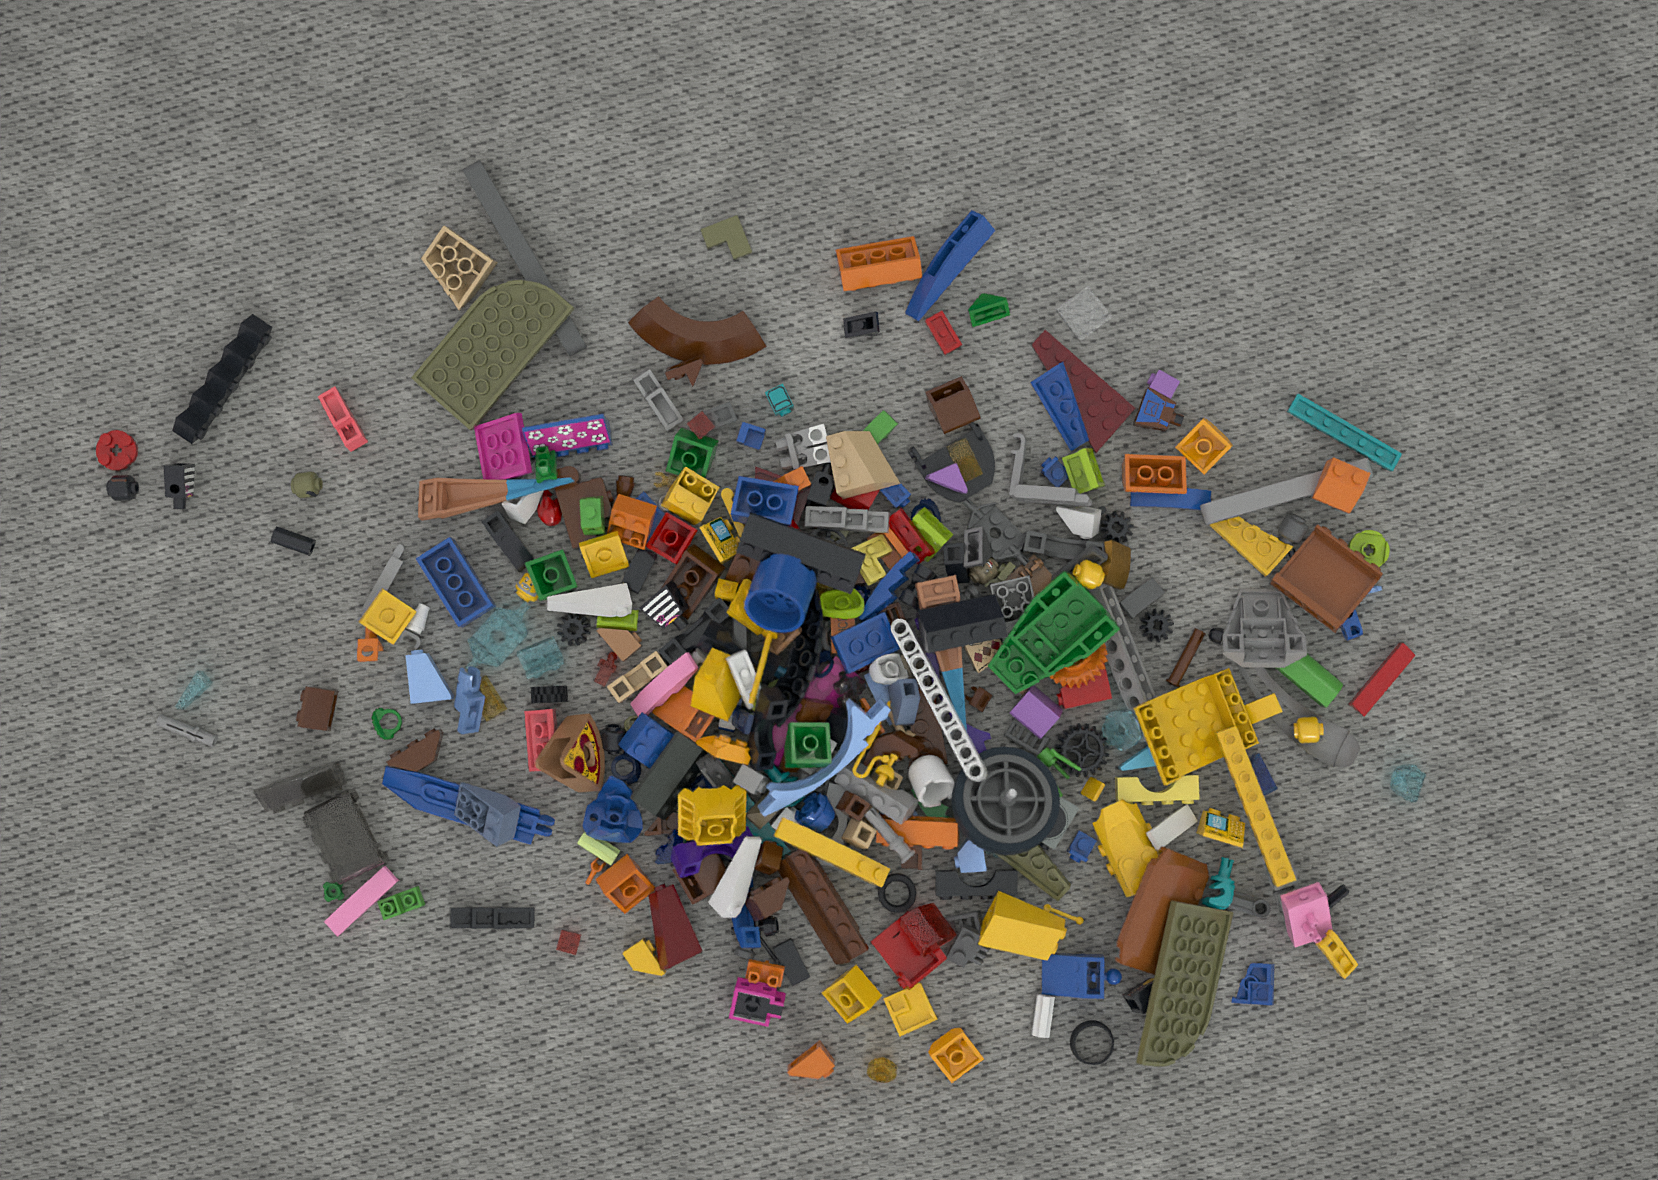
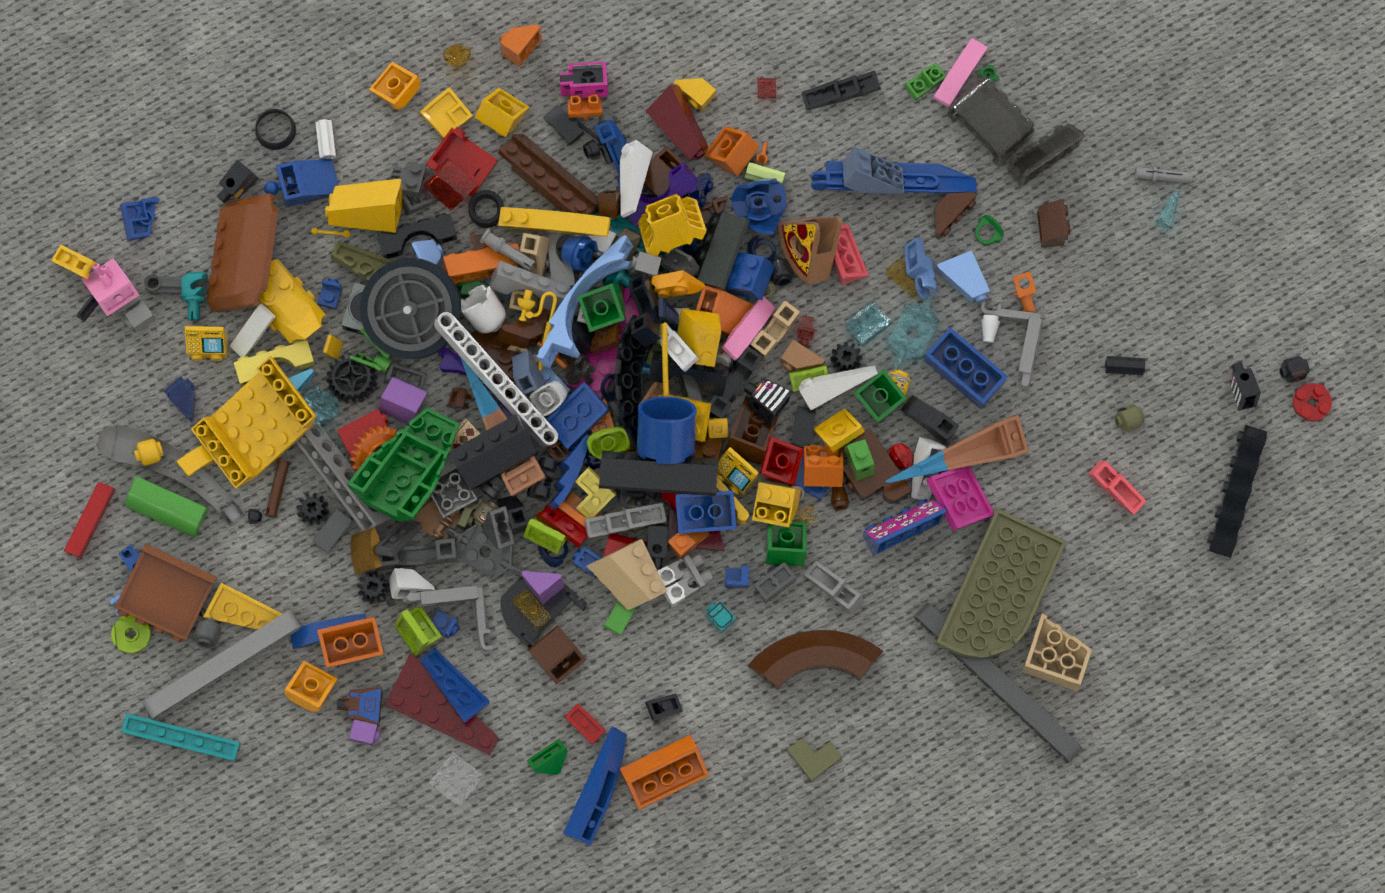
camera: 165 degrees right, 10 degrees down
(387, 616) = (1016, 318): yellow plate -> none
(545, 464) = (915, 490): green hips -> none
(549, 694) = (850, 292): black tyre -> none
(690, 367) = (813, 622): reddish brown slope -> none
(700, 425) = (785, 568): clear red plate -> none
(768, 900) = (600, 168): reddish brown slope -> none
(852, 806) = (547, 266): reddish brown brick -> none
(1089, 574) = (388, 529): yellow head -> none
(1184, 982) = (207, 199): olive plate -> none
(1255, 806) = (182, 368): yellow brick -> none
(1263, 631) = (214, 528): light grey wedge -> none
(1340, 485) = (173, 679): orange slope -> none
(1407, 782) = (44, 431): clear light blue hair -> none

